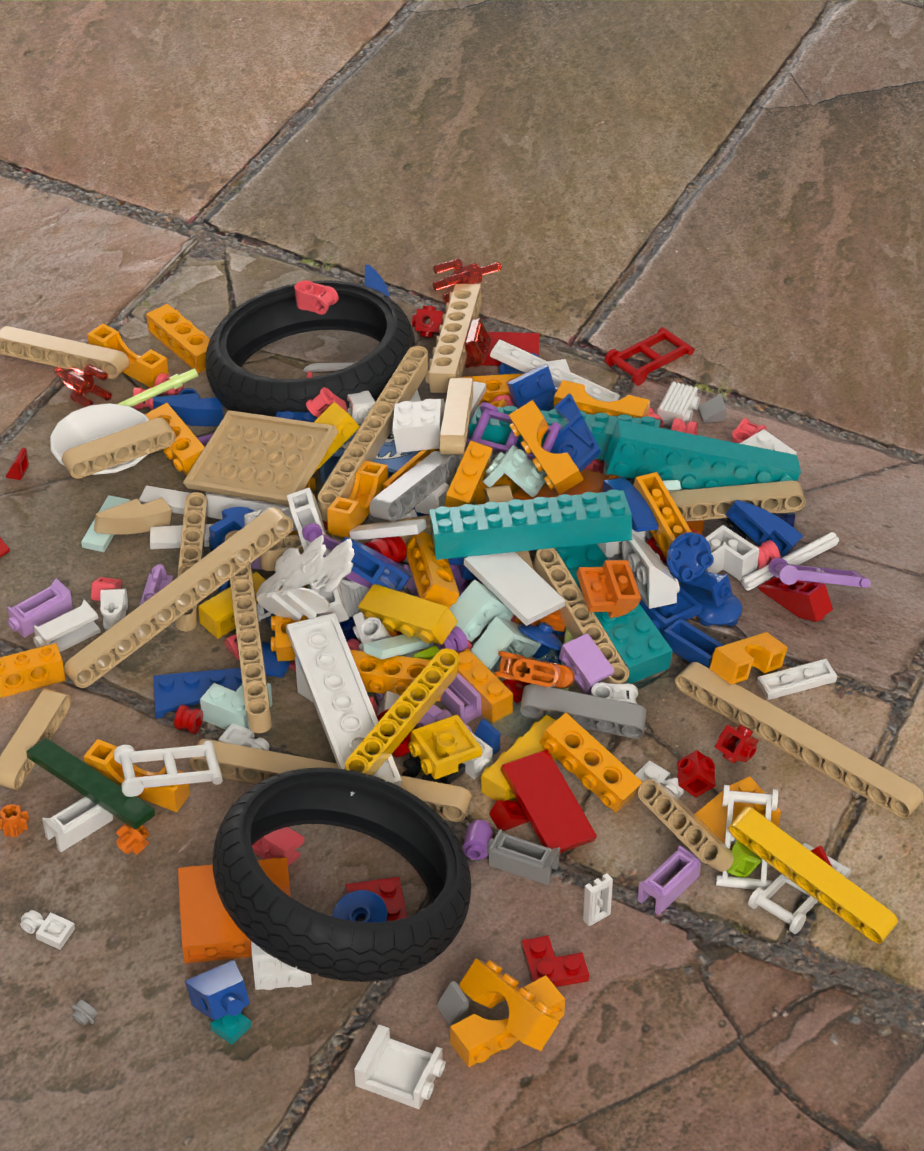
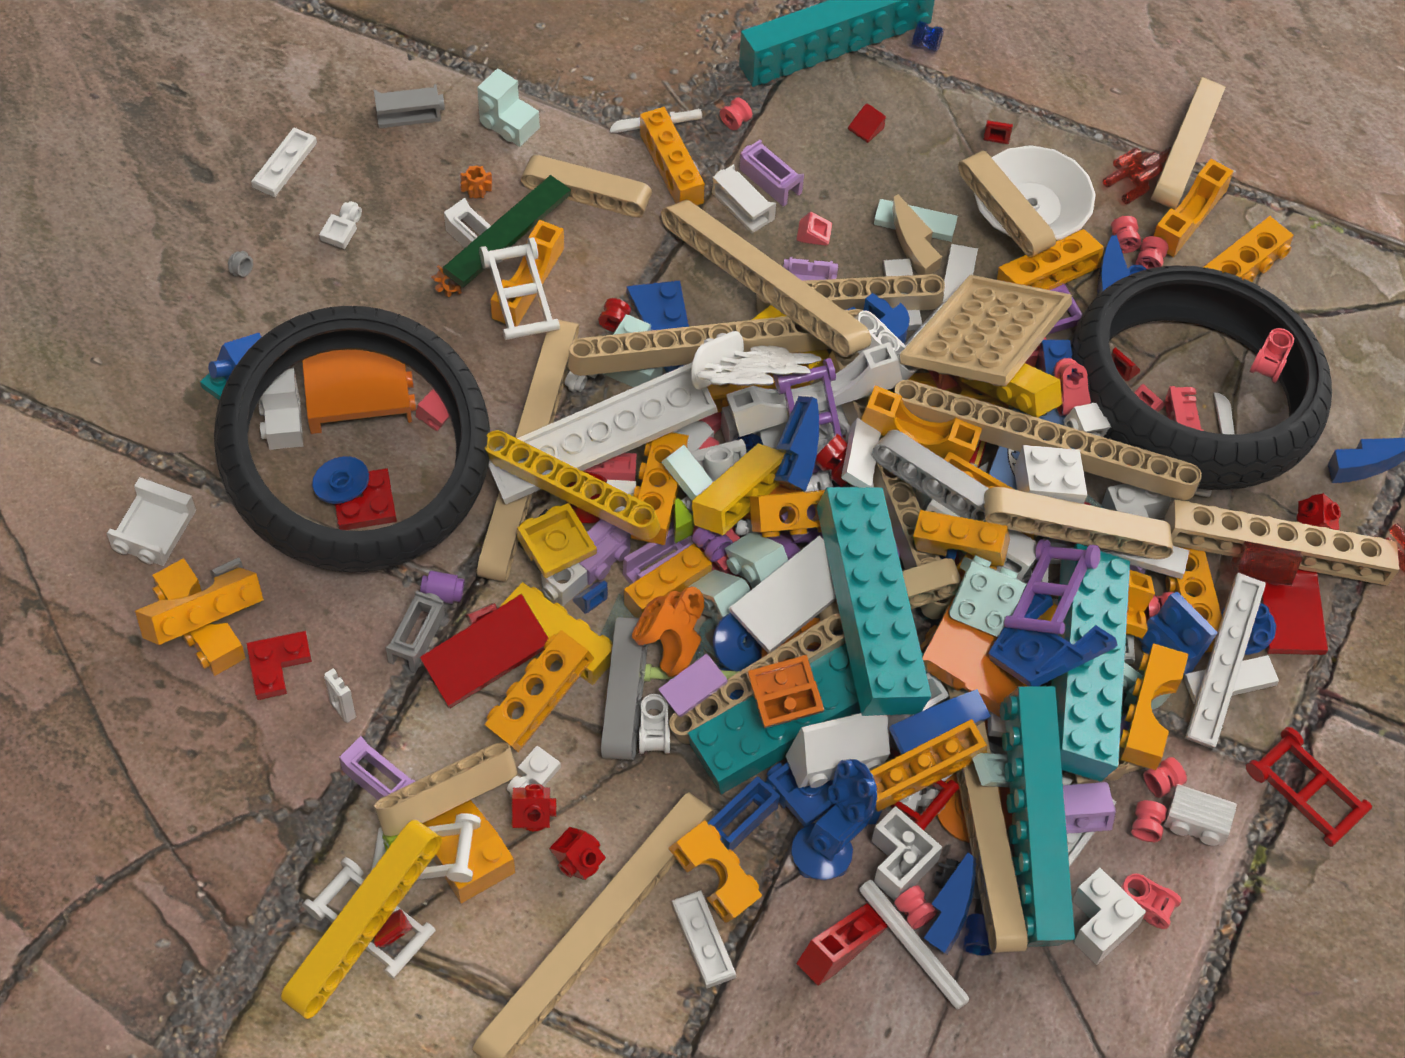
camera: 85 degrees right, 15 degrees up
(113, 606) = (779, 235): white piece -> none
(174, 382) = (1135, 247): yellowish green bar -> none
(559, 468) = (1044, 594): light orange arch -> none
(713, 410) = (1203, 863): light grey slope -> none
(791, 573) = (886, 921): medium lavender piece -> none

